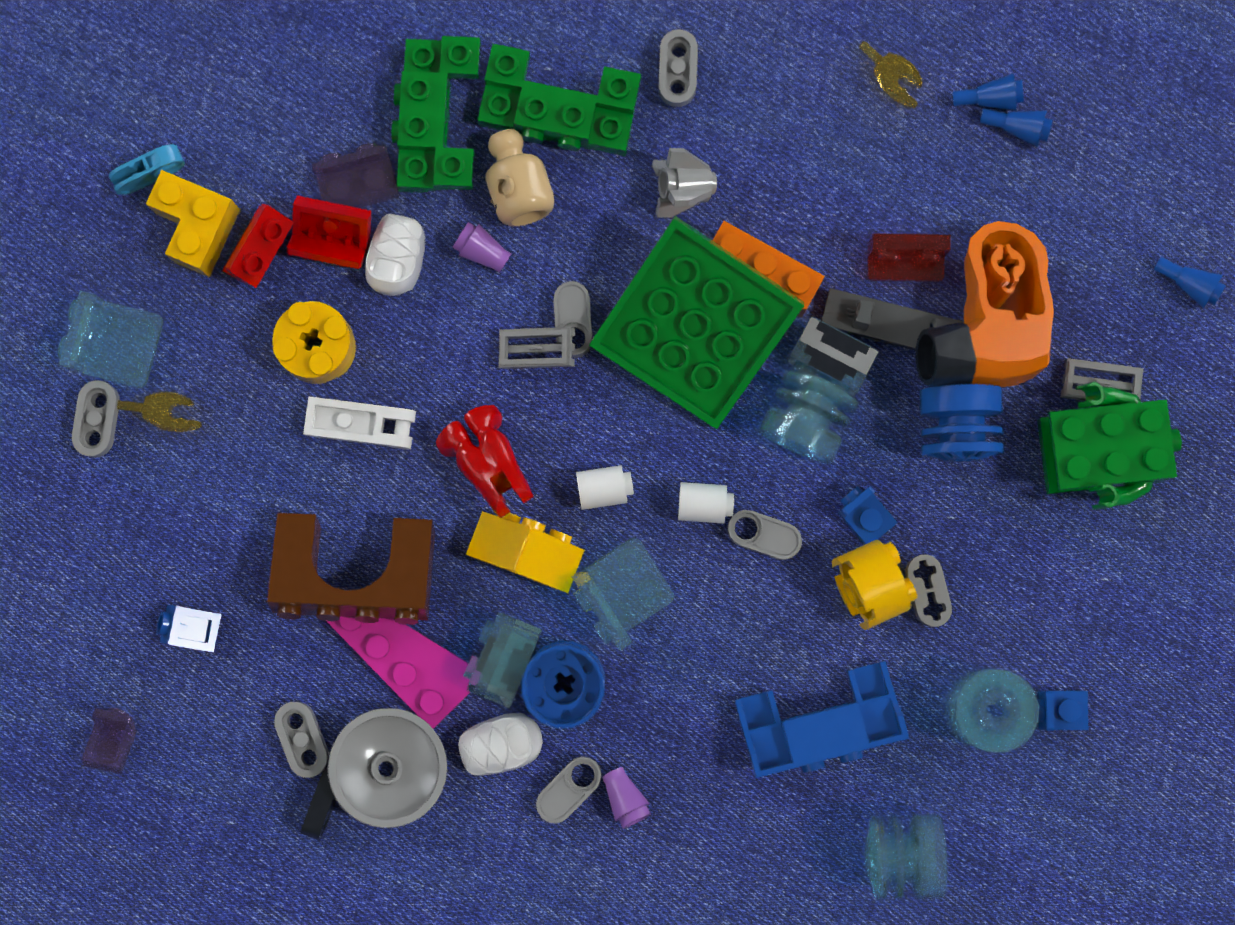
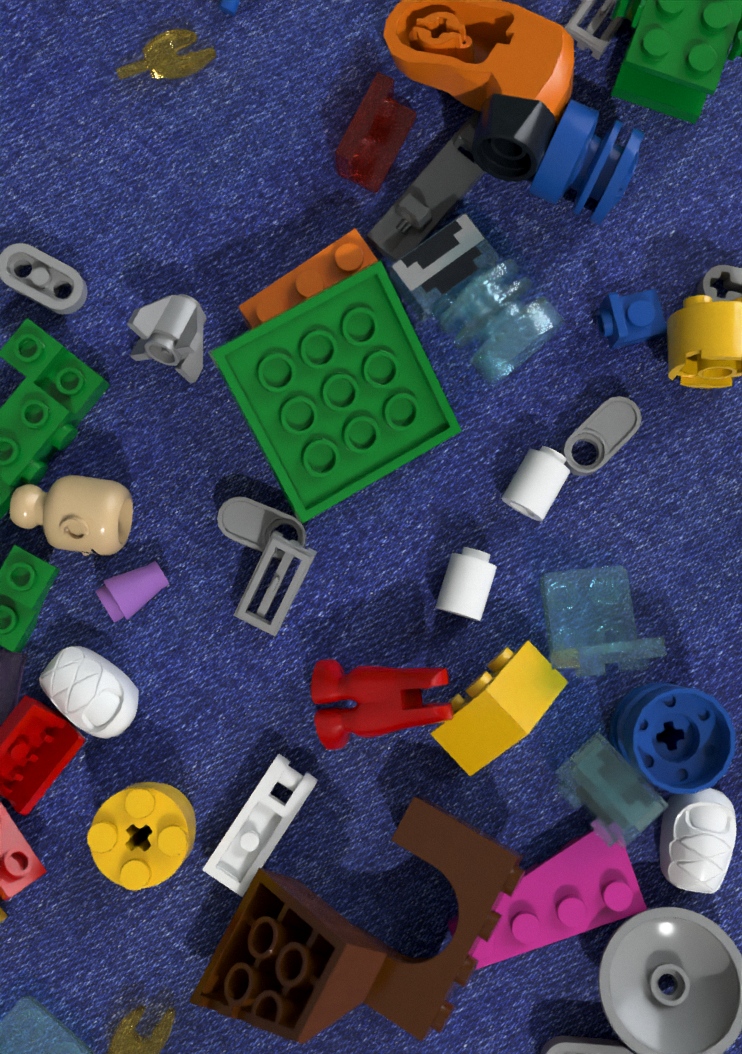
camera: 65 degrees left, 0 degrees up
(278, 482) = (288, 962): none -> reddish brown wedge

